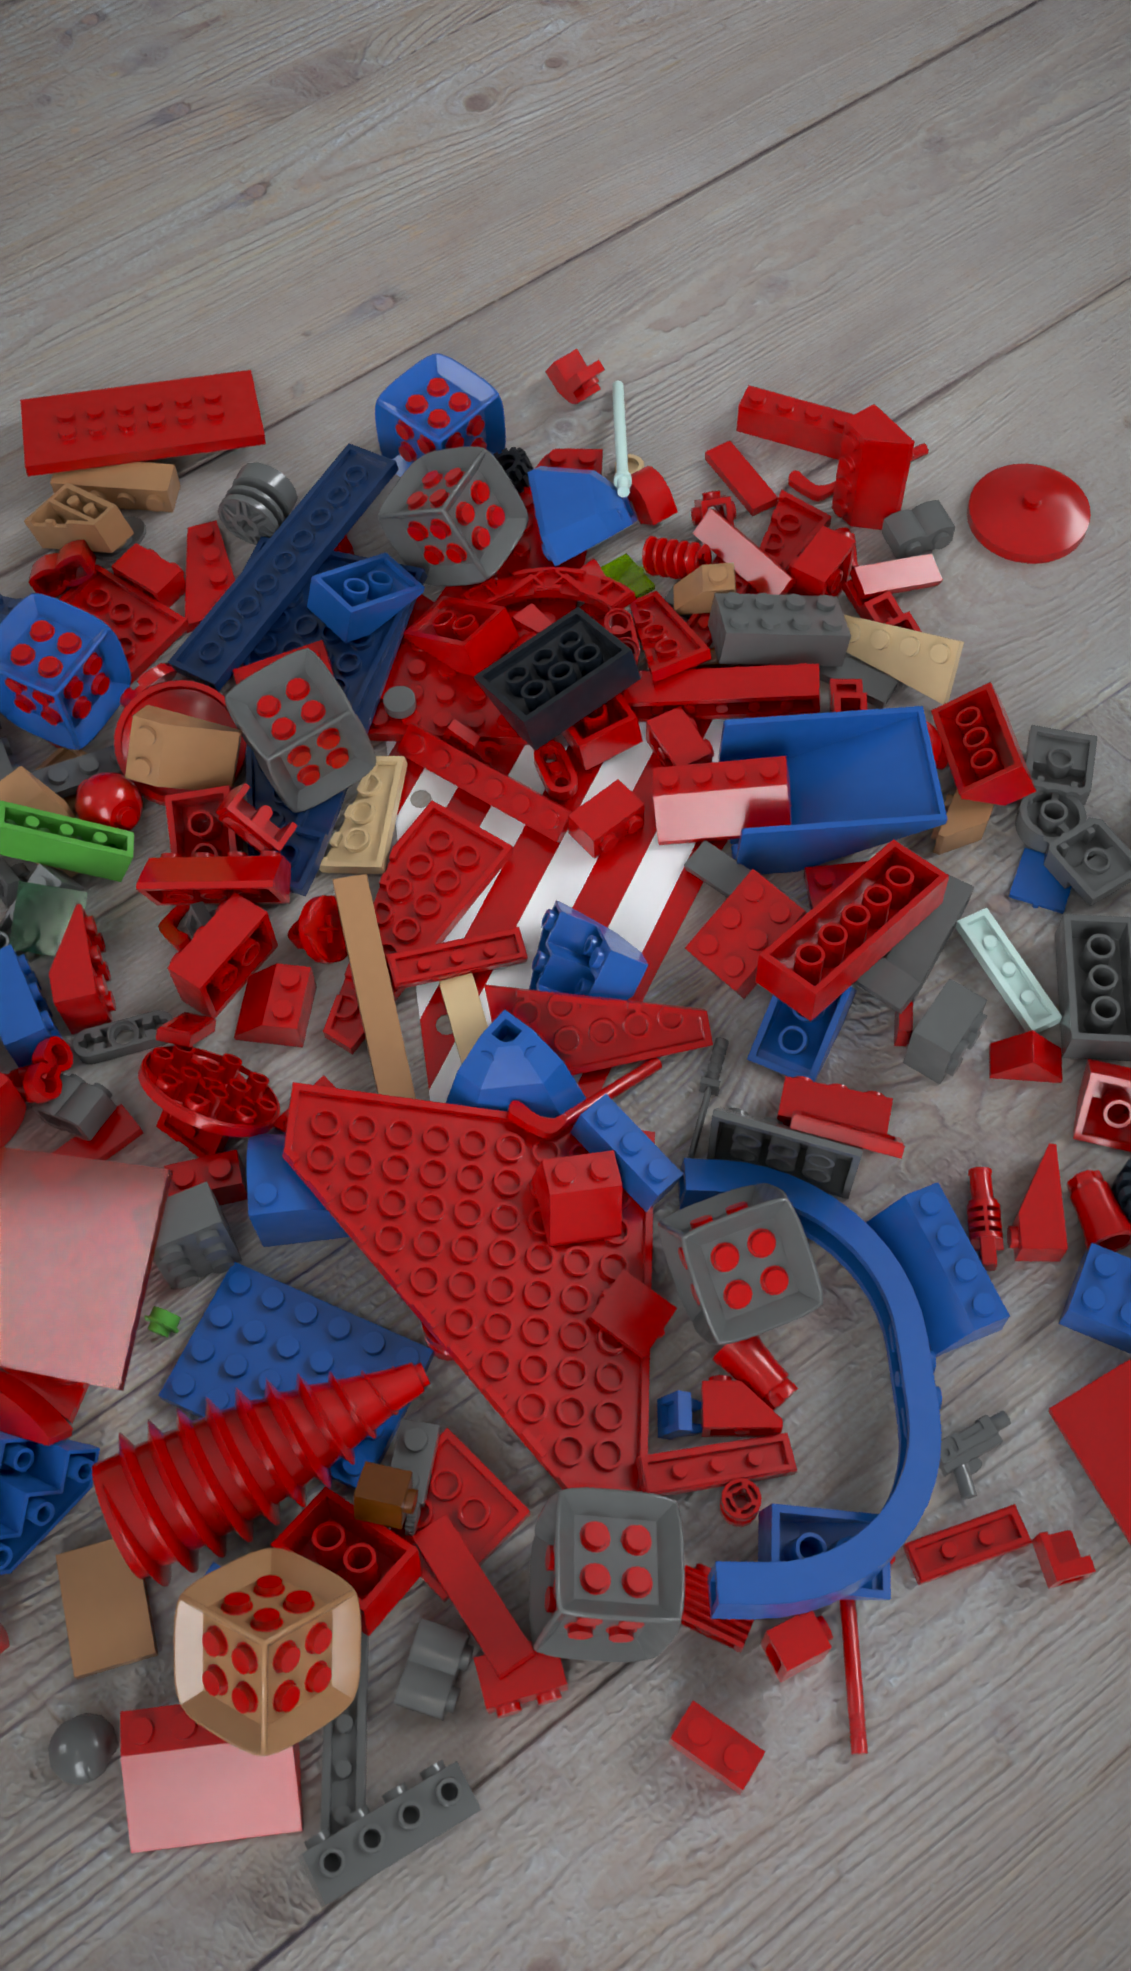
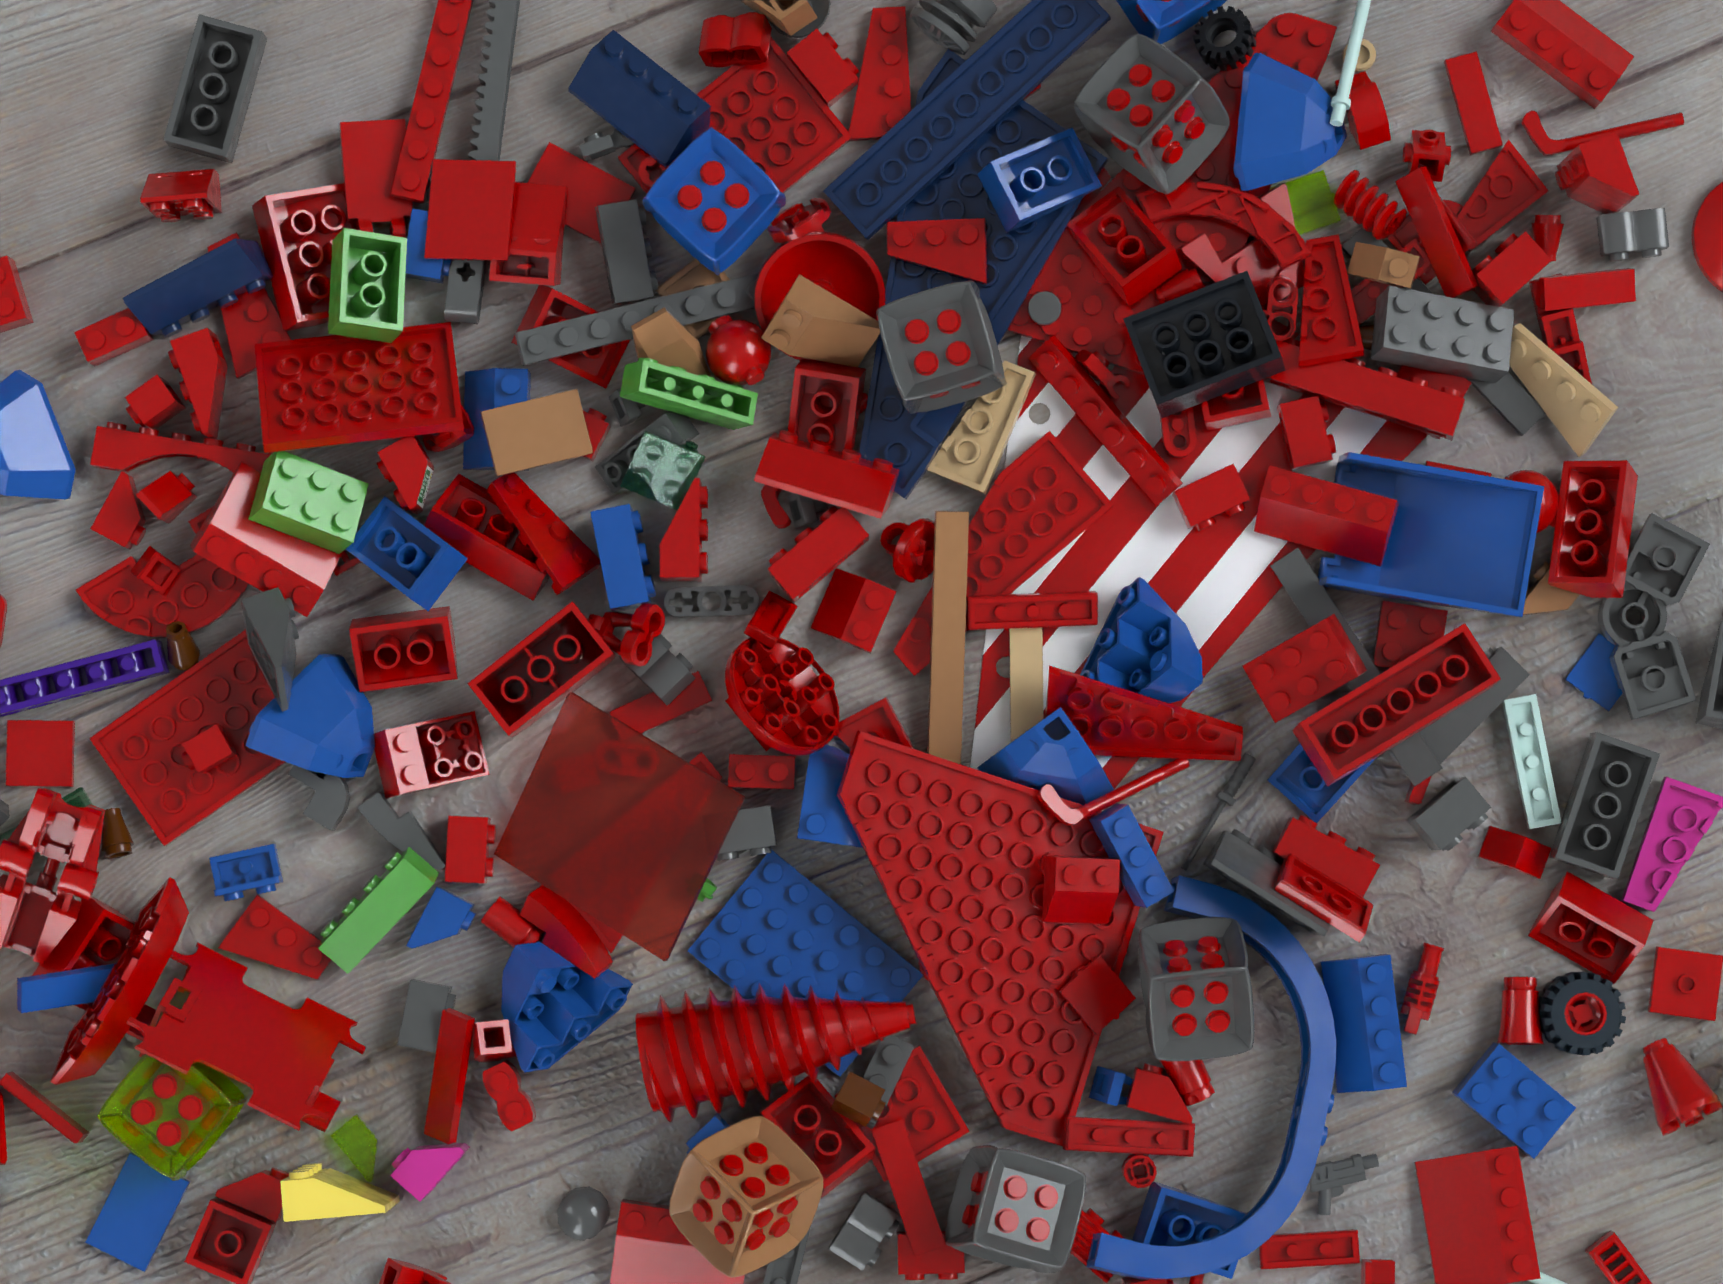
camera: 10 degrees right, 25 degrees up
(104, 1610) = (616, 1110): medium nougat tile -> none
(251, 823) = (876, 428): red window -> none
(847, 695) = (1481, 438): red brick -> none
(1040, 1222) = (1469, 1000): red slope -> none

